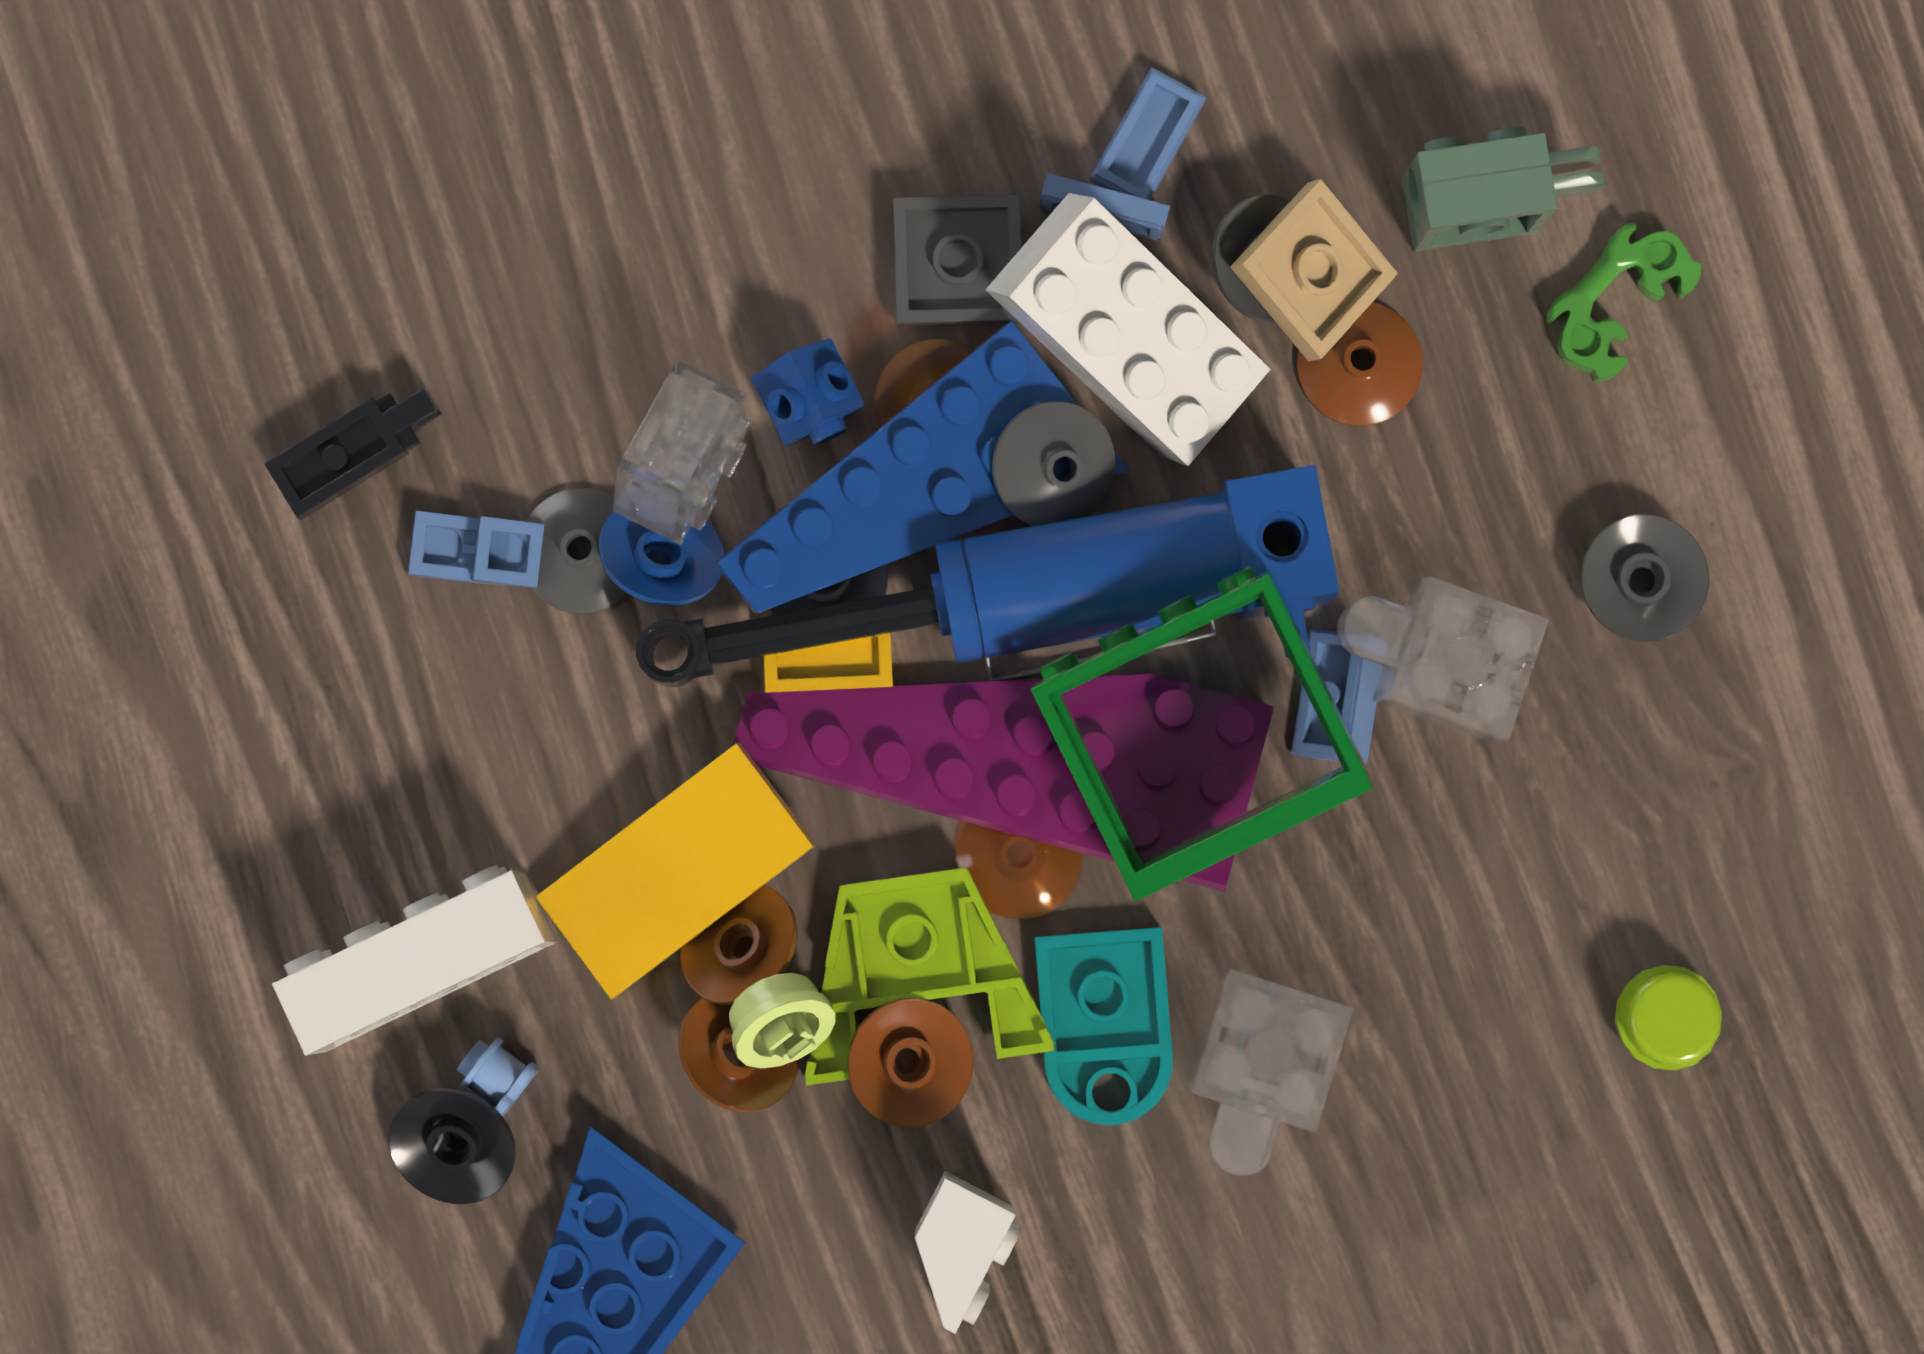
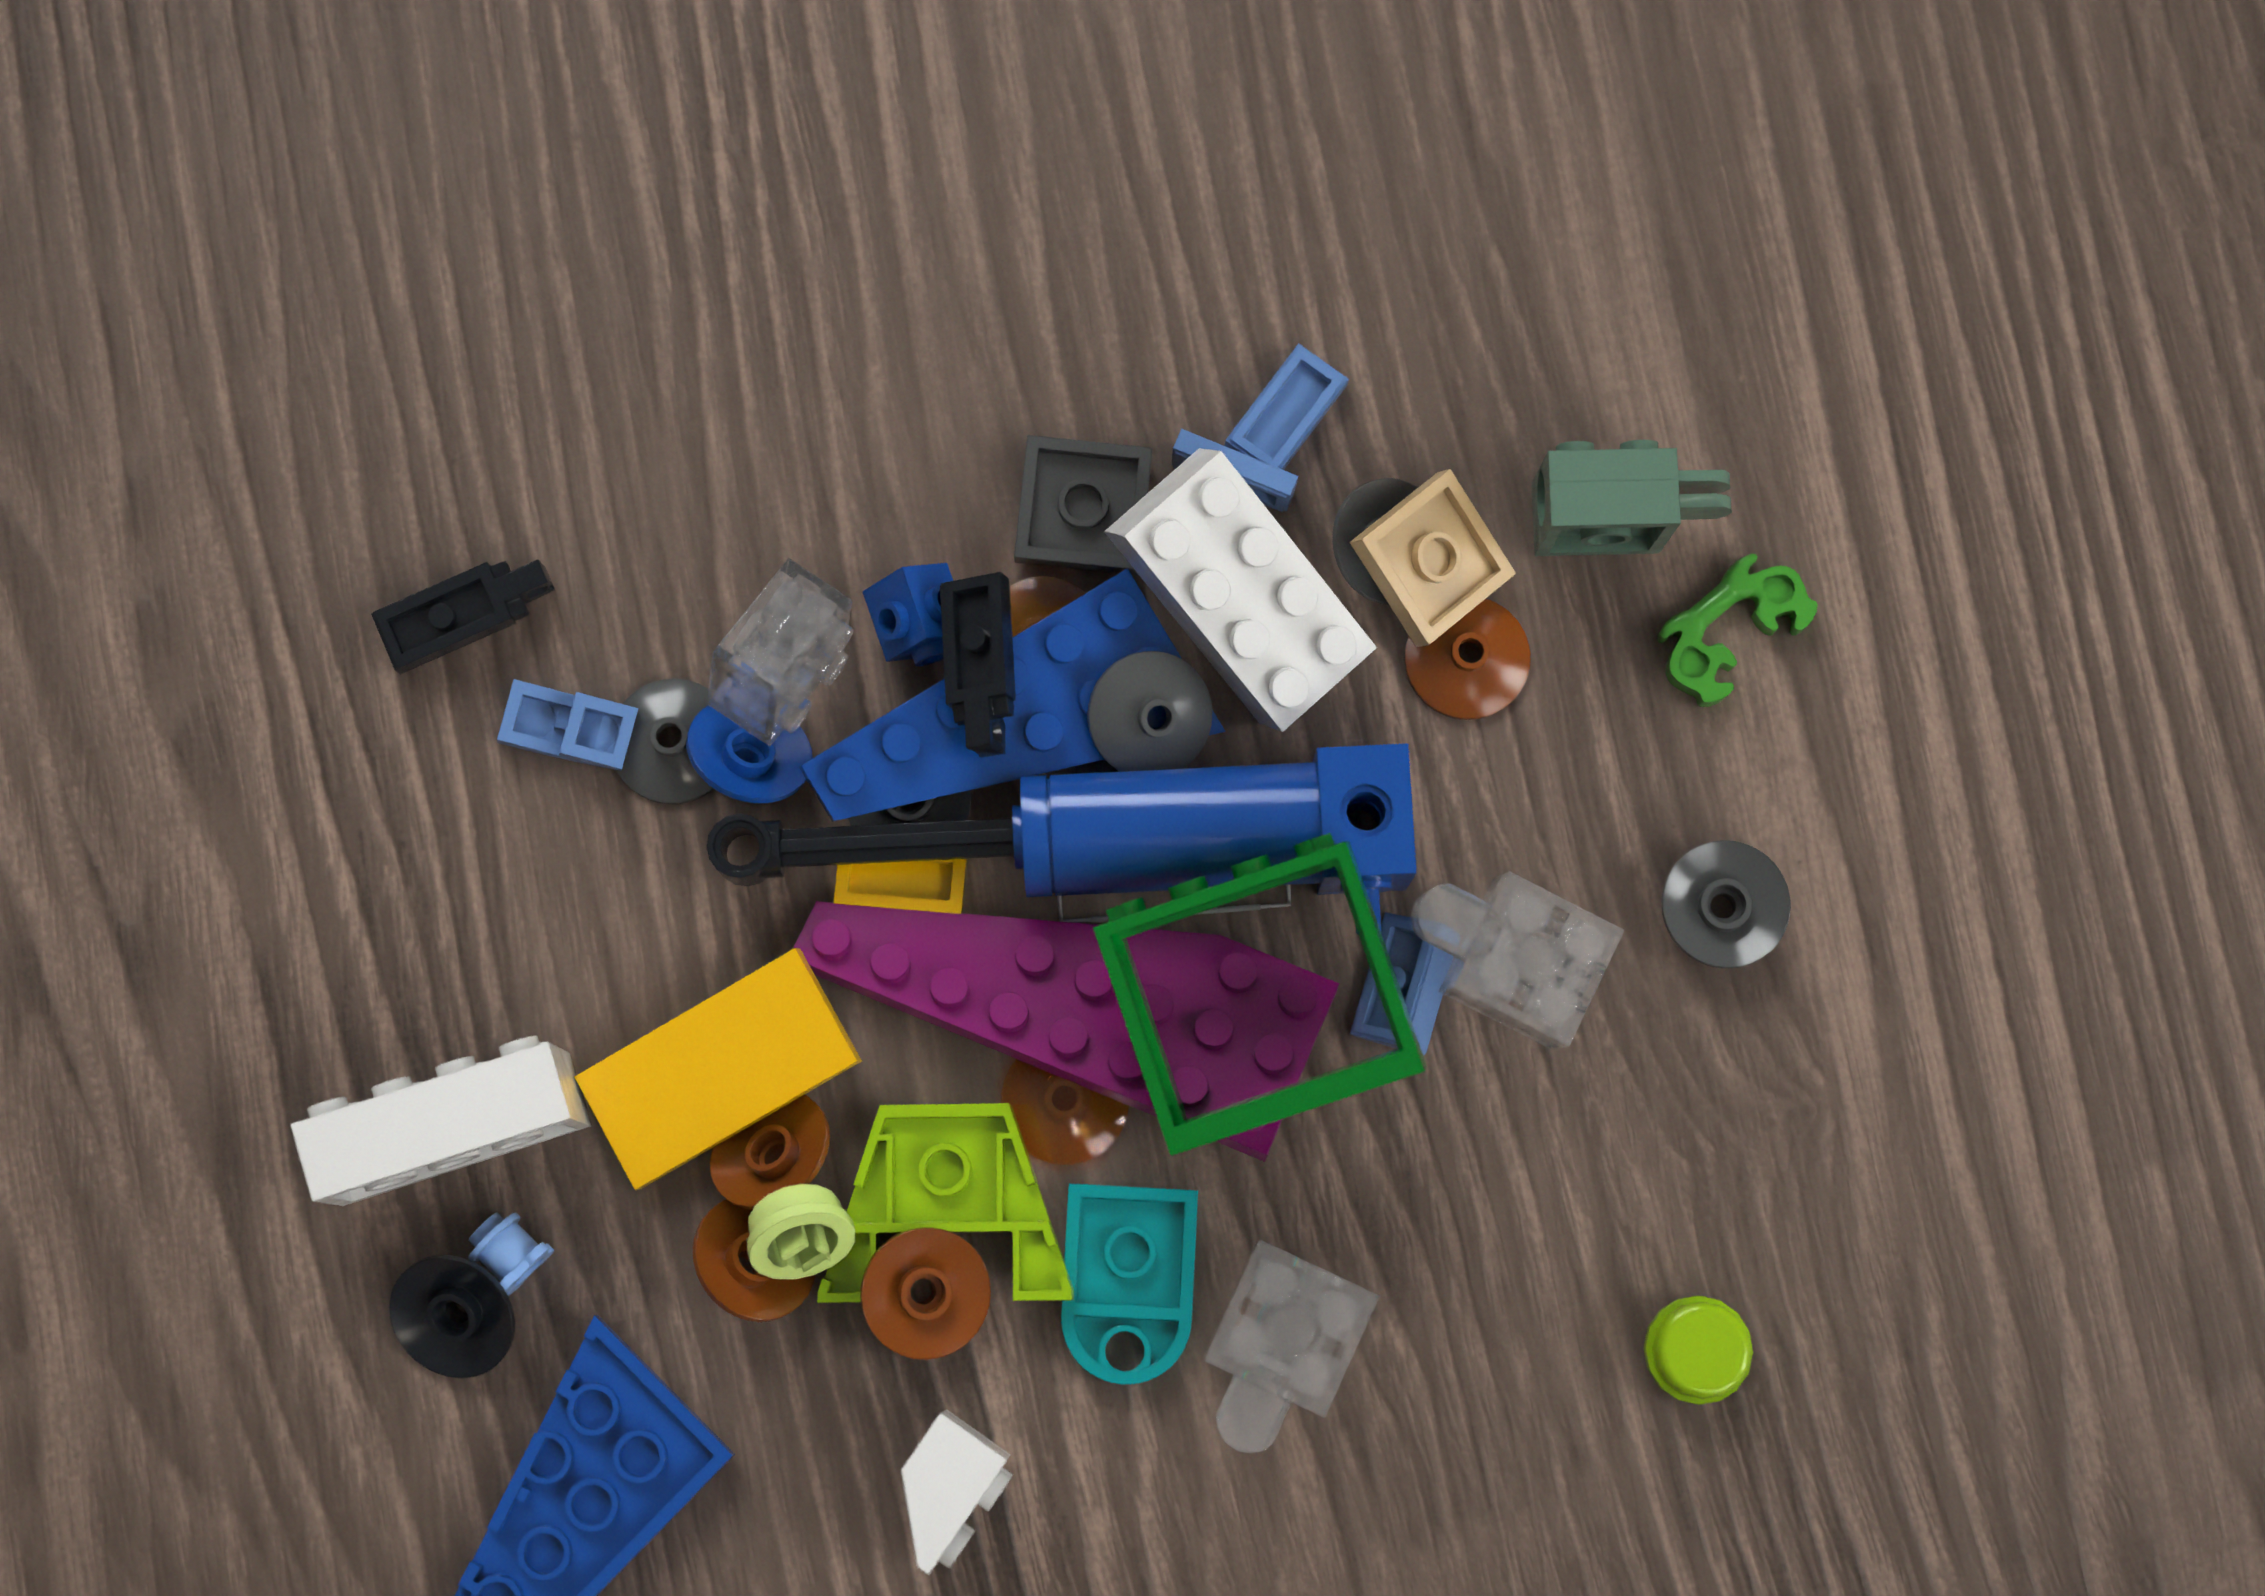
camera: 10 degrees right, 5 degrees down
(879, 433) = (979, 658): none -> black hinge

